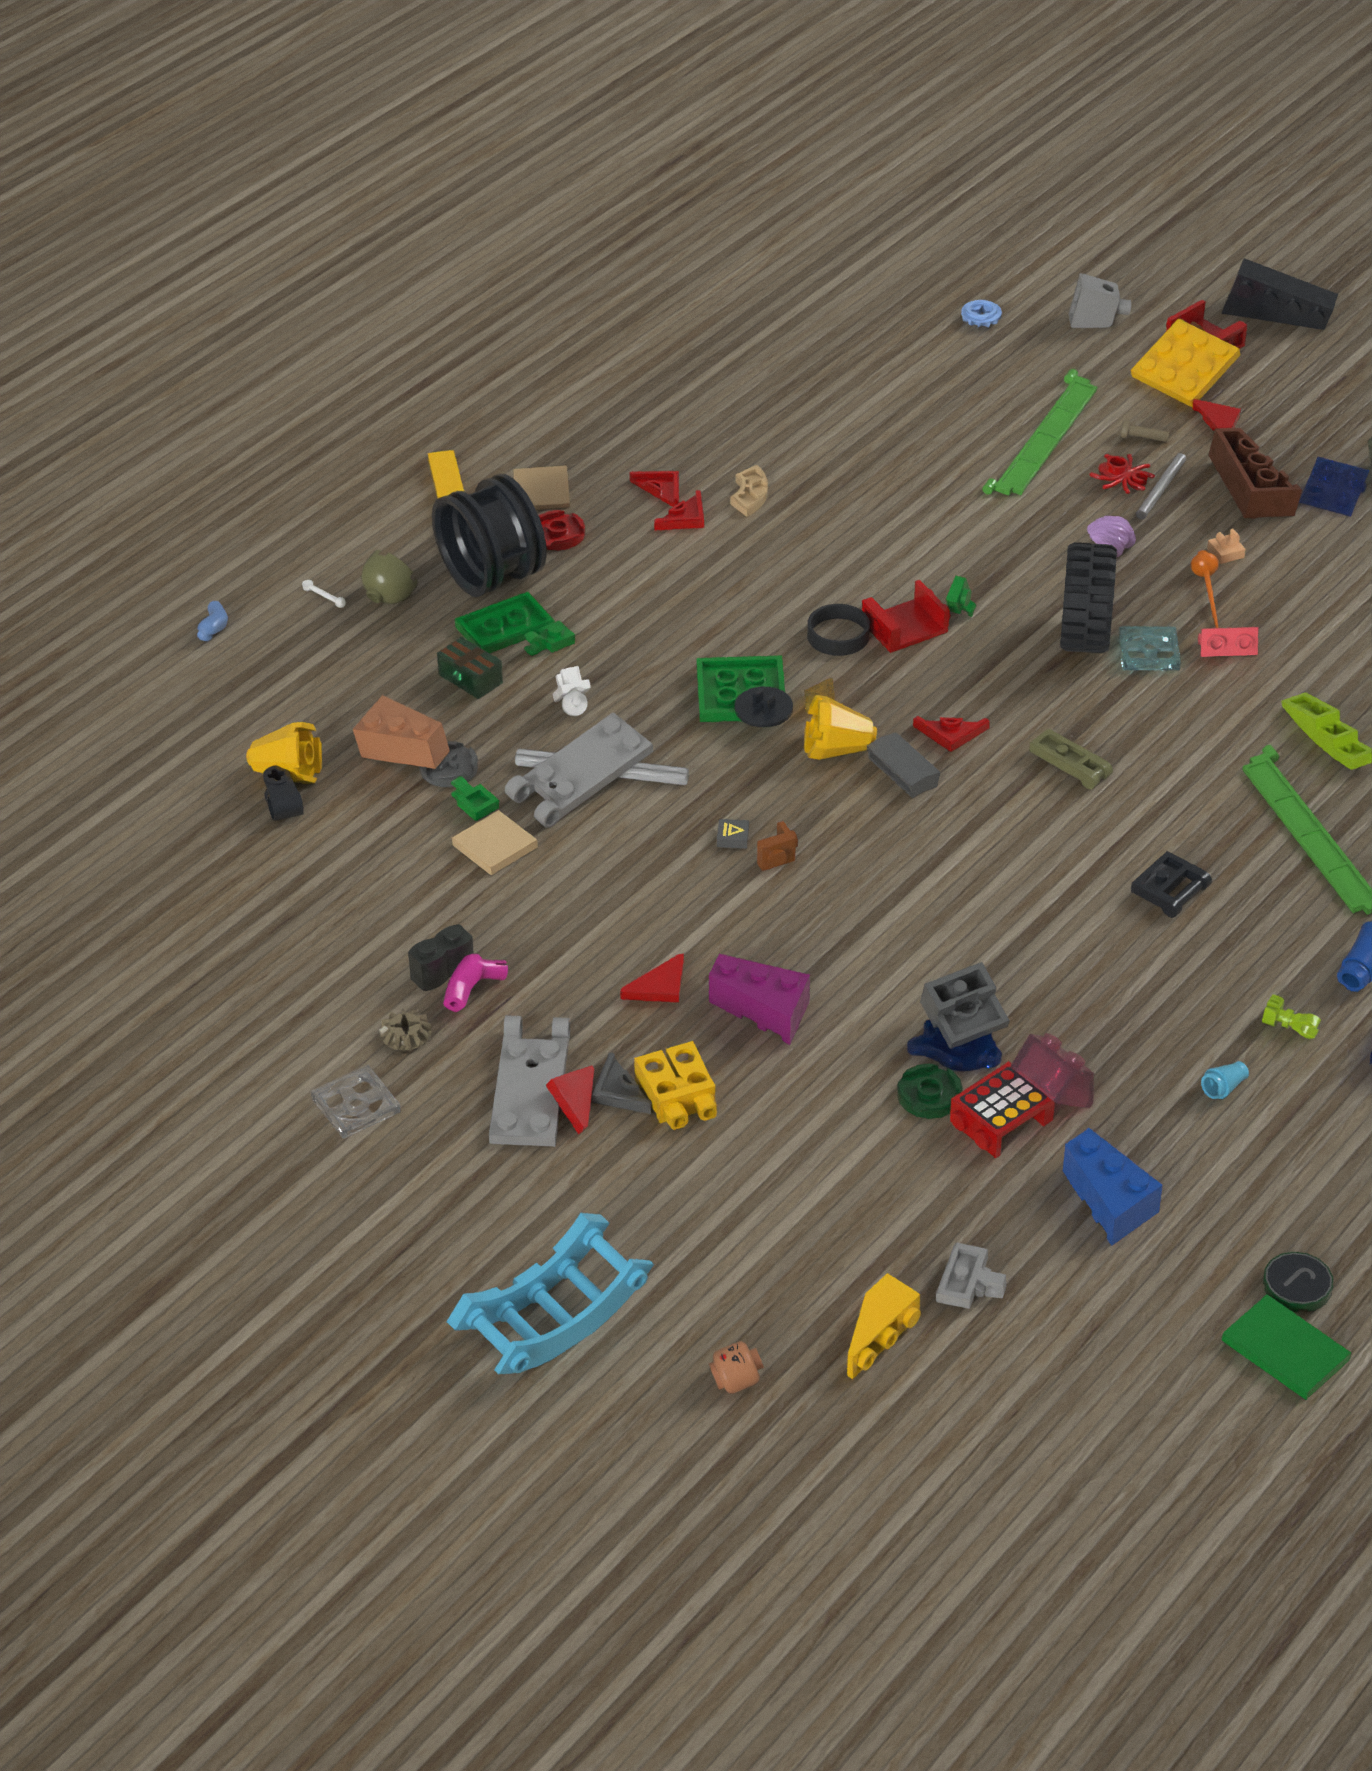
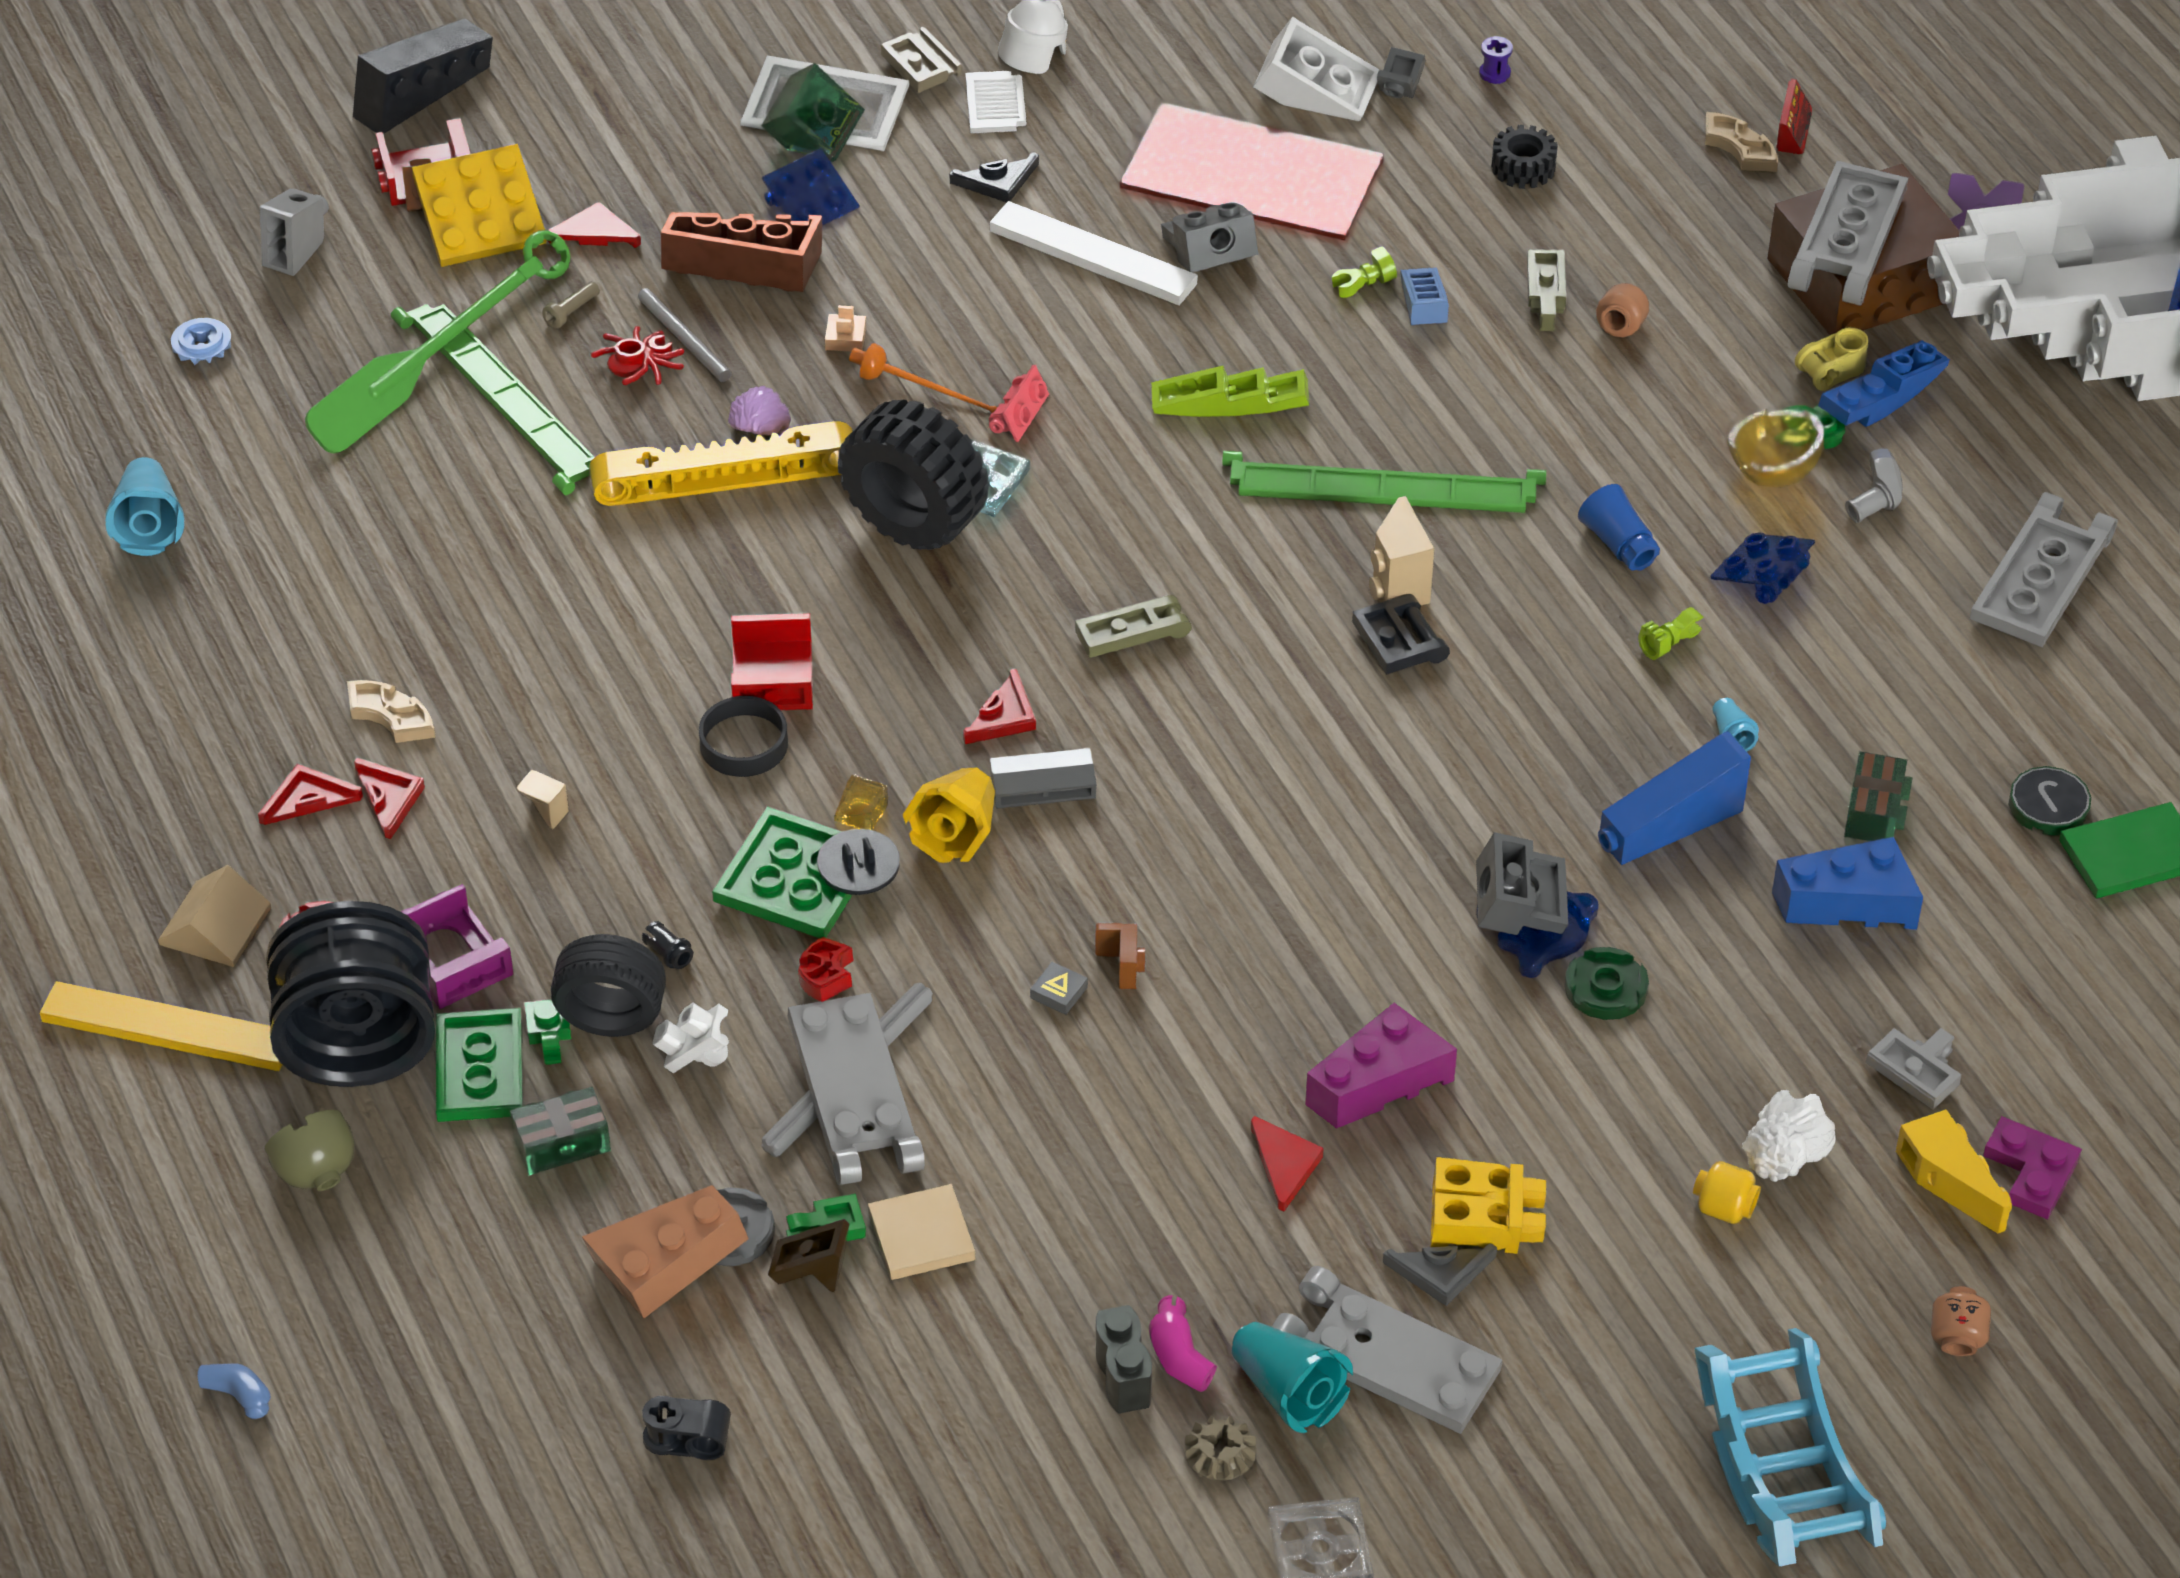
camera: 65 degrees left, 5 degrees up
(291, 749) = (614, 1389): yellow cone -> none
(308, 585) = (228, 1252): white hinge -> none
(439, 804) = (811, 1252): none -> dark brown slope
(469, 1037) = (1293, 1374): none -> teal cone
(563, 589) = (483, 966): none -> magenta panel
(573, 1095) = (1442, 1315): red tile -> none
(577, 634) = (614, 962): none -> black tyre
(642, 663) = (674, 950): none -> black pin
(669, 722) = (823, 970): none -> red tile
(719, 568) = (547, 795): none -> tan slope
(774, 1207) = (1726, 1192): none -> yellow head
(823, 338) = (144, 510): none -> medium azure cone
(838, 1217) = (1788, 1136): none -> white hair
(920, 1383) = (2042, 1162): none -> magenta plate
(959, 597) = (792, 593): green plate -> none
(999, 1106) = (1685, 927): panel -> none
(1009, 387) = (391, 378): none -> bright green piece
(1021, 513) = (623, 479): none -> yellow gear
(1055, 1071) = (1676, 850): clear pink slope -> none
(1124, 1067) = (1678, 801): none -> blue slope
(1212, 1176) = (1876, 797): none -> clear green brick
(1230, 848) = (1402, 556): none -> tan slope

